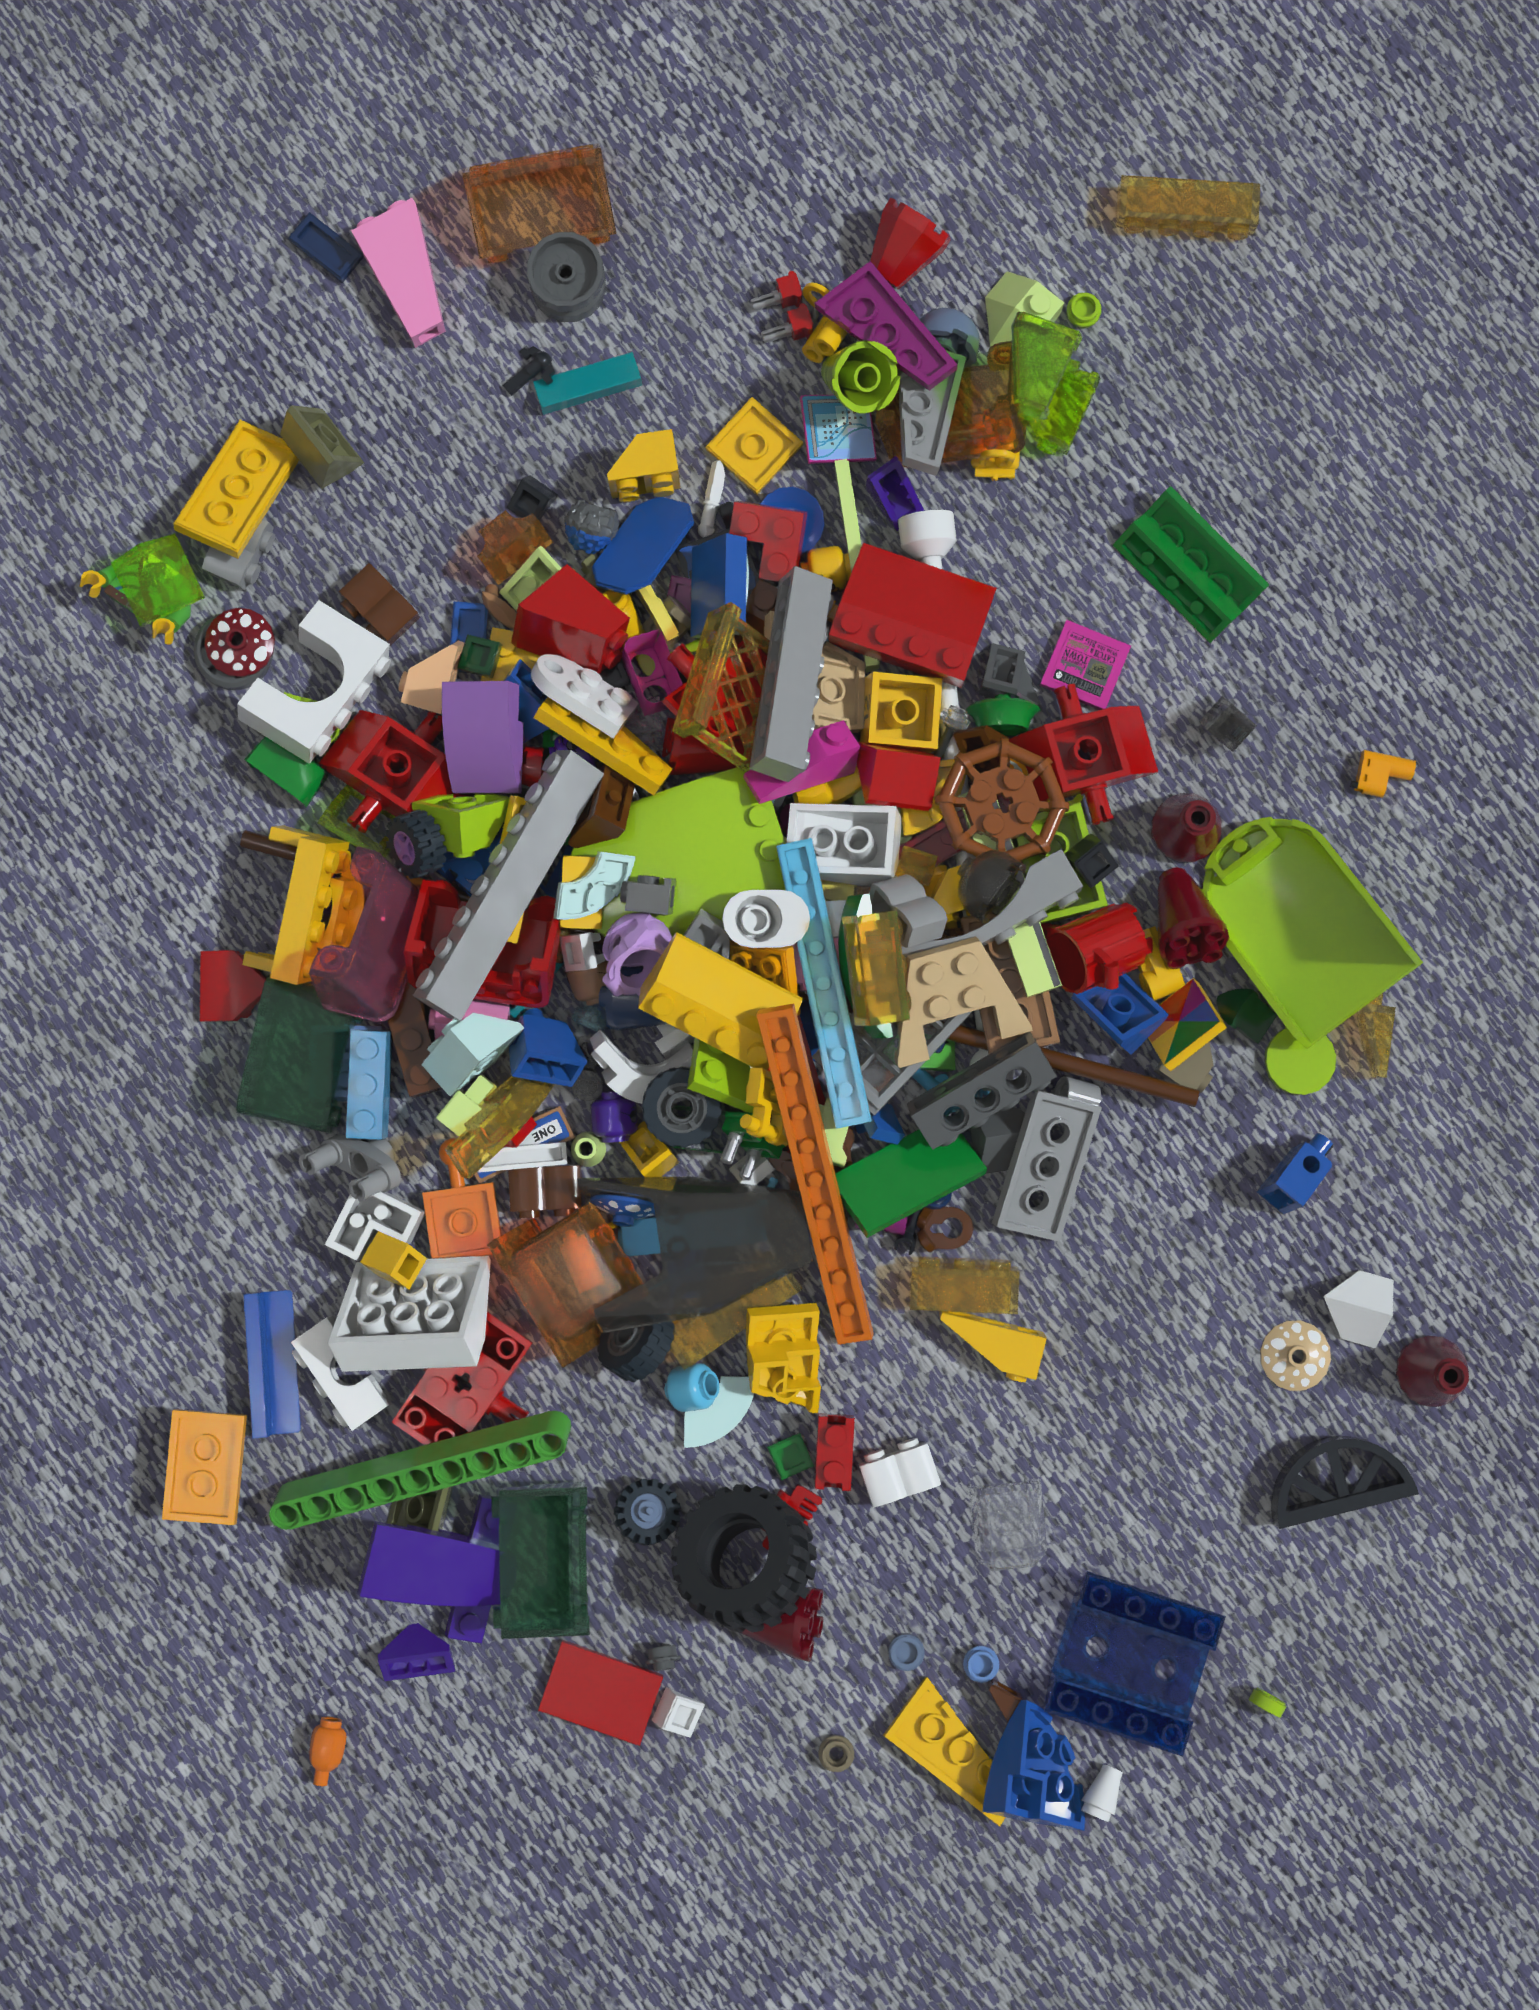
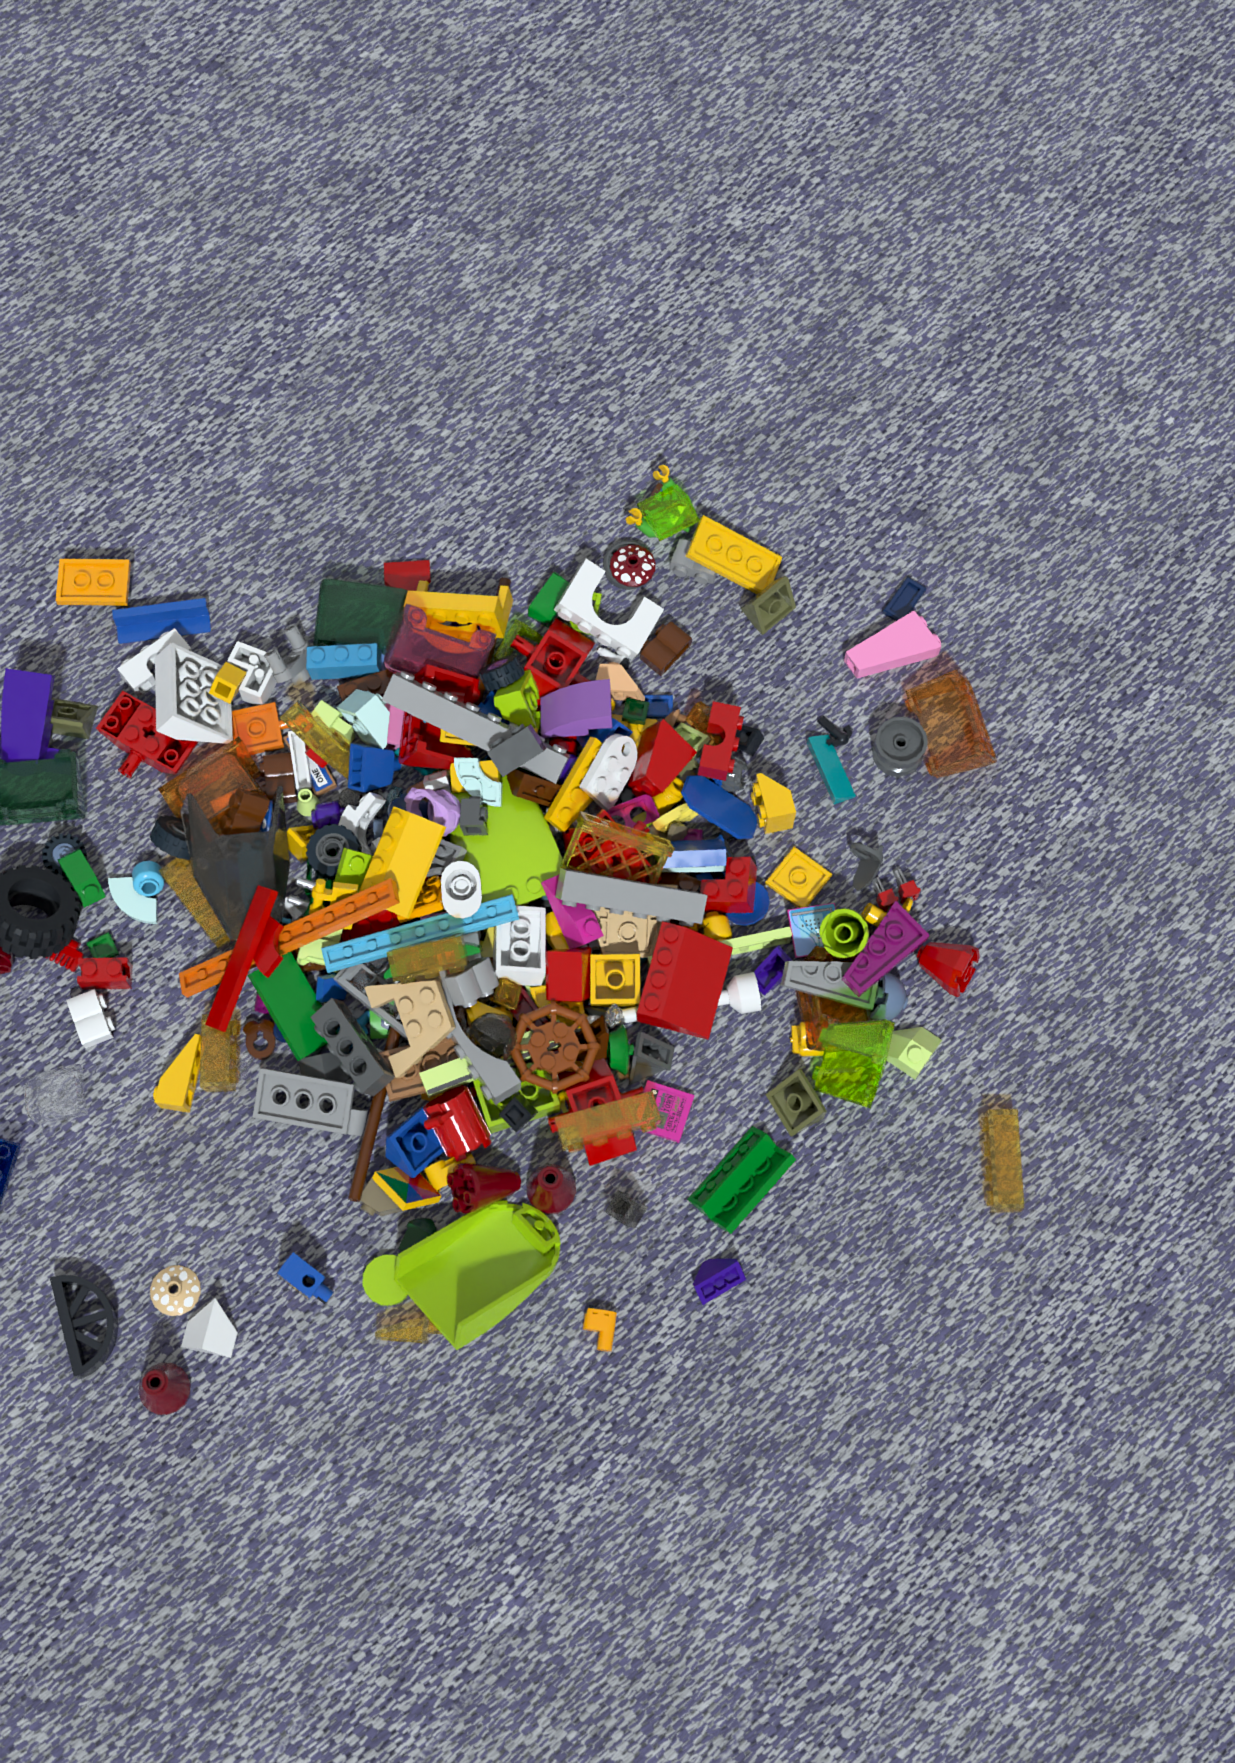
camera: 85 degrees right, 15 degrees down
(390, 679) = (612, 657): none -> white piece
(421, 1470) = (90, 709): bright green beam -> none
(524, 517) = (717, 759): none -> red arch
(557, 822) = (516, 750): none -> dark grey brick
(621, 1234) = (245, 813): none -> reddish brown brick
(640, 1045) = (378, 828): none -> sand blue tile
(689, 1484) = (81, 877): none -> green slope
(712, 499) = (760, 854): white piece -> none
(746, 345) = (869, 864): none -> dark grey piece
(784, 1353) = (170, 935): yellow slope -> none
(825, 1209) = (267, 954): none -> red tile
(842, 1244) = (241, 958): none -> red tile
(909, 1235) = (253, 1015): black hand -> none
(1083, 310) = (919, 1094): lime plate -> none
(1089, 478) = (796, 1103): none -> olive slope
(1117, 735) = (607, 1121): none -> clear yellow brick
(1321, 611) = (716, 1278): none -> dark purple slope

